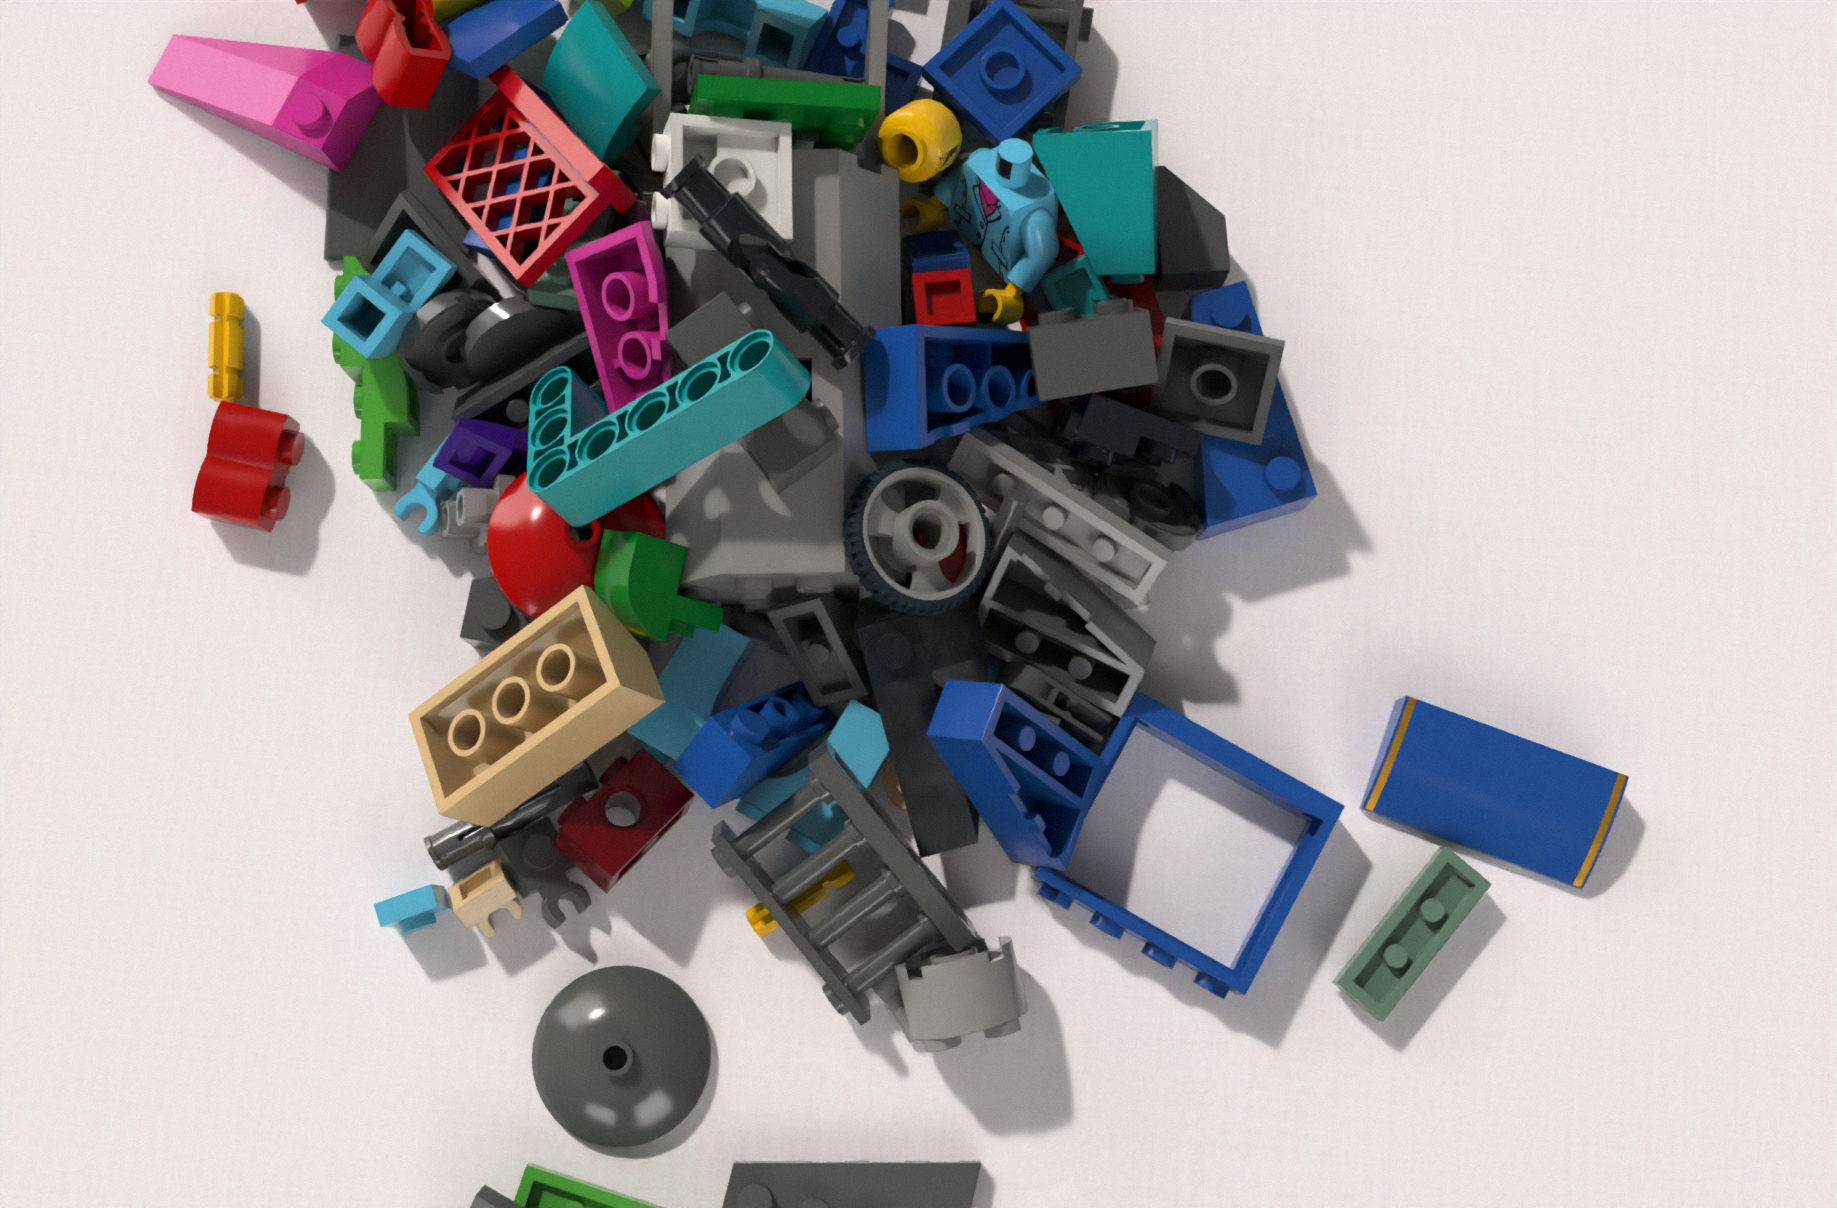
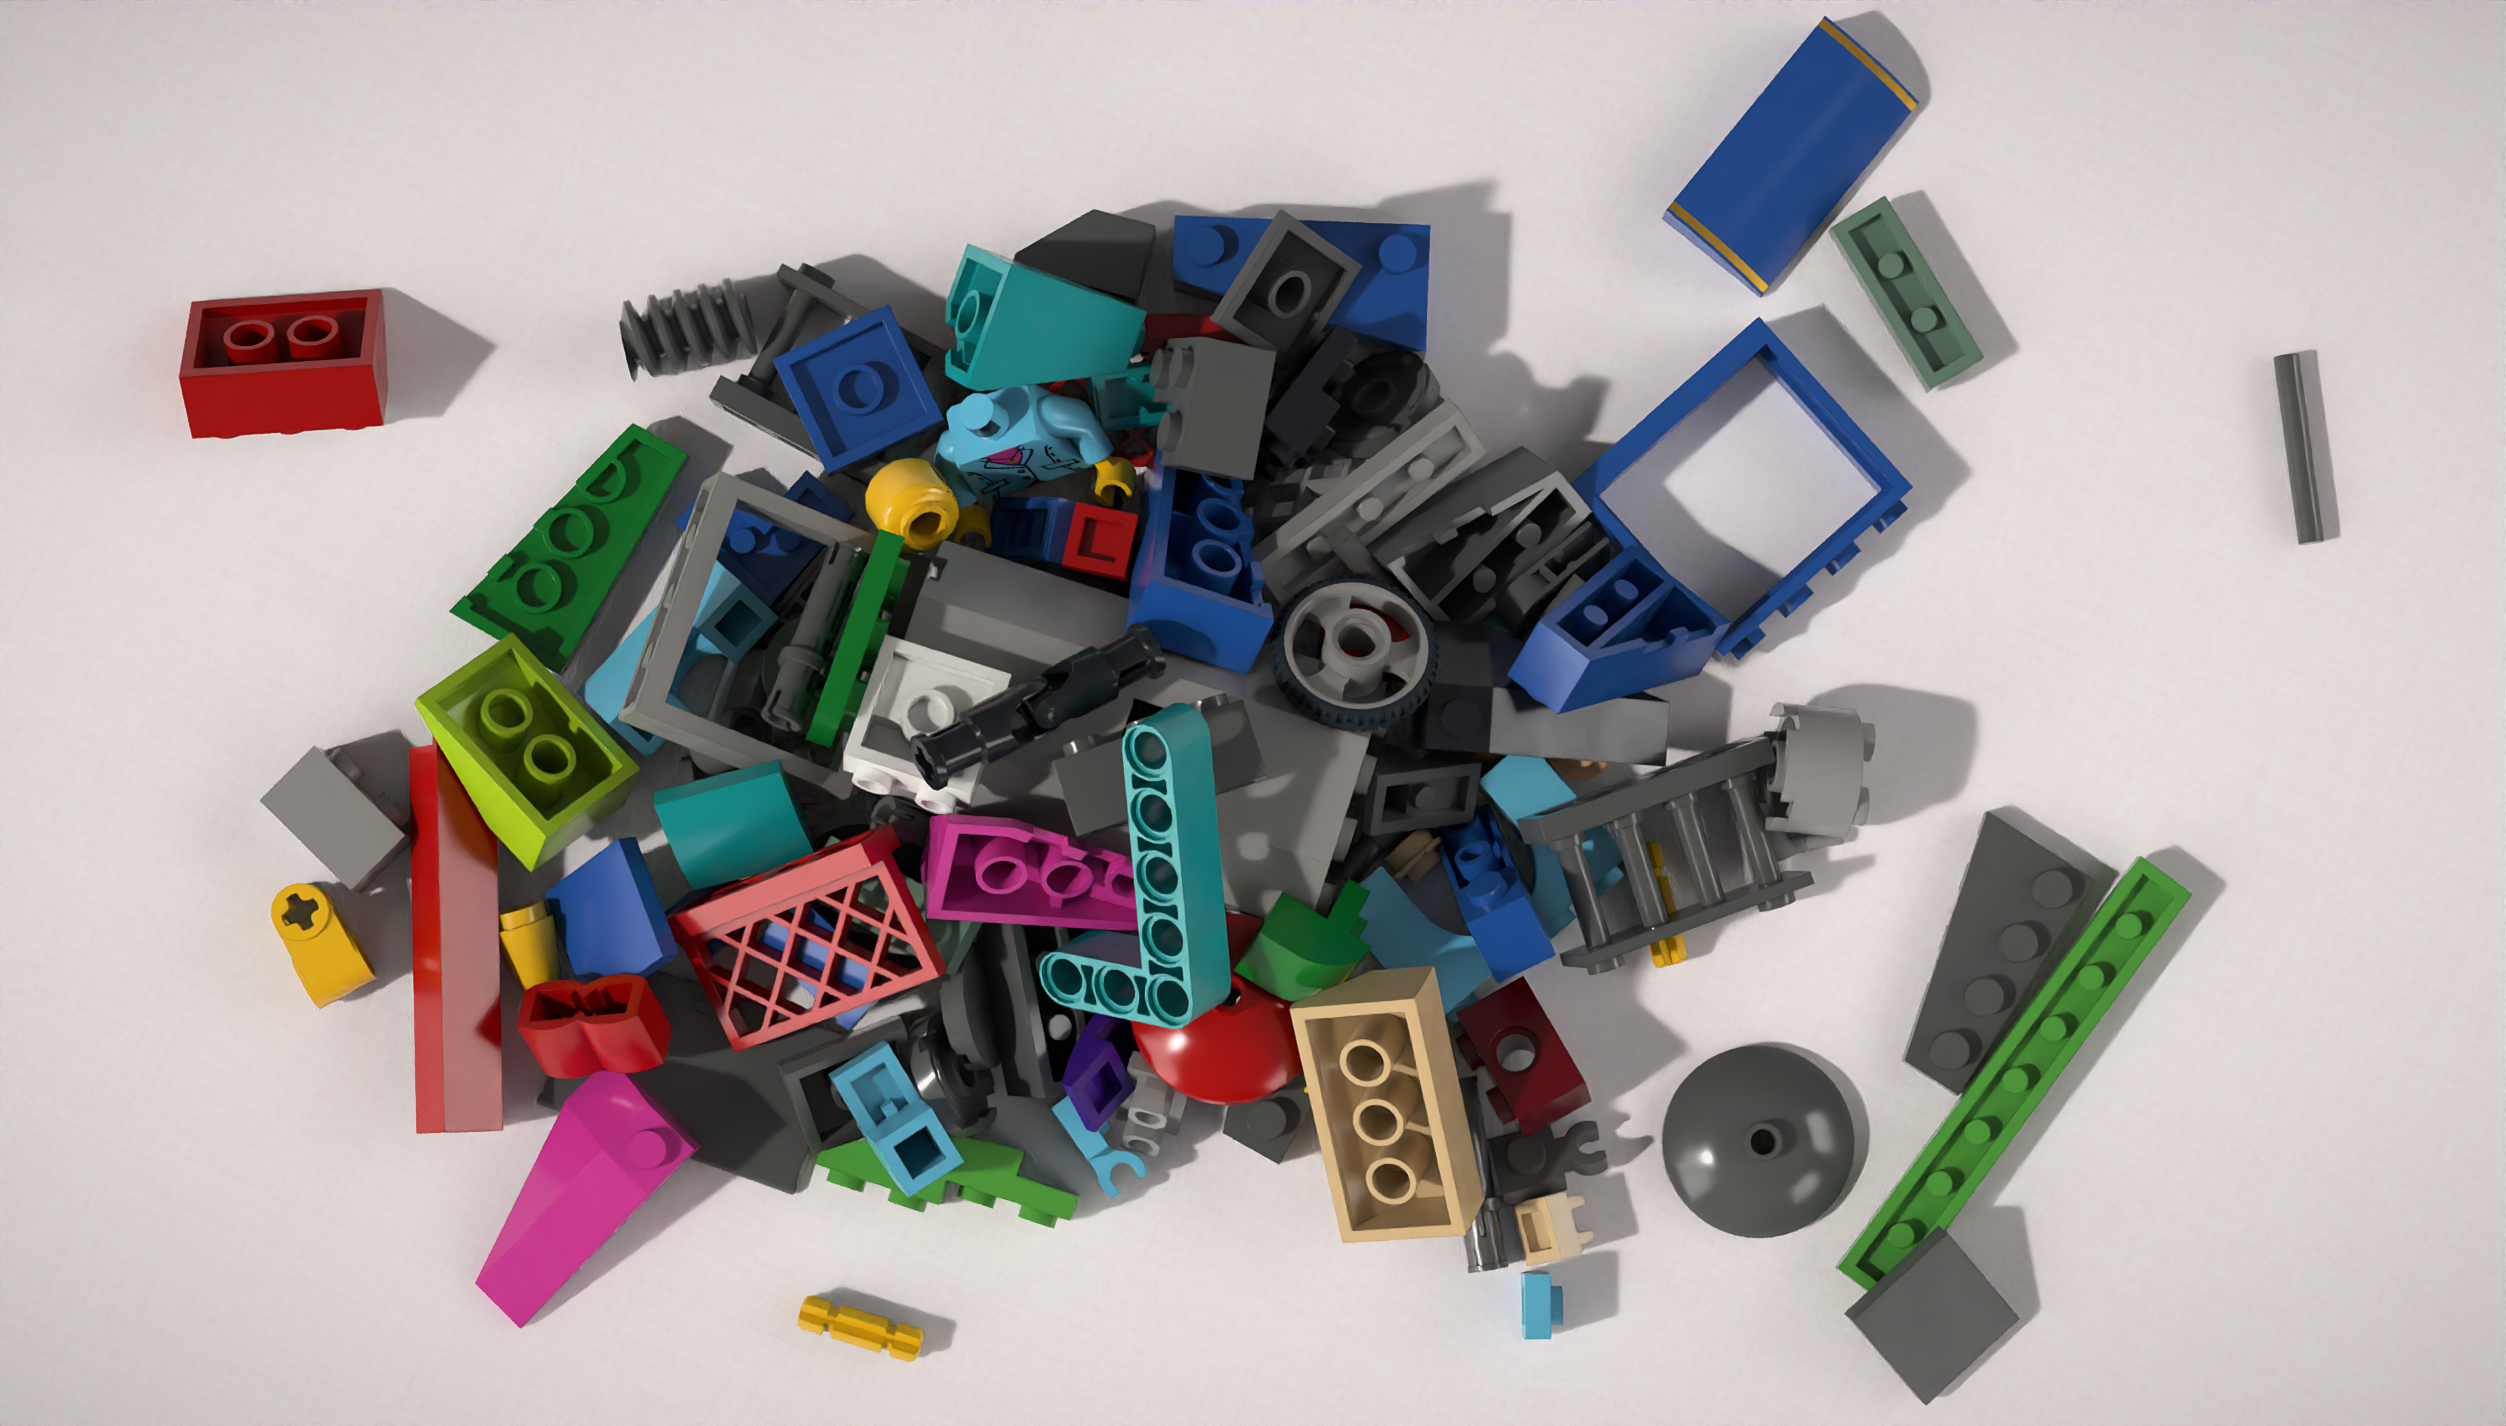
camera: 70 degrees left, 5 degrees up
(247, 466) = (1008, 1341): red brick -> none
(771, 670) = (1415, 855): none -> tan plate

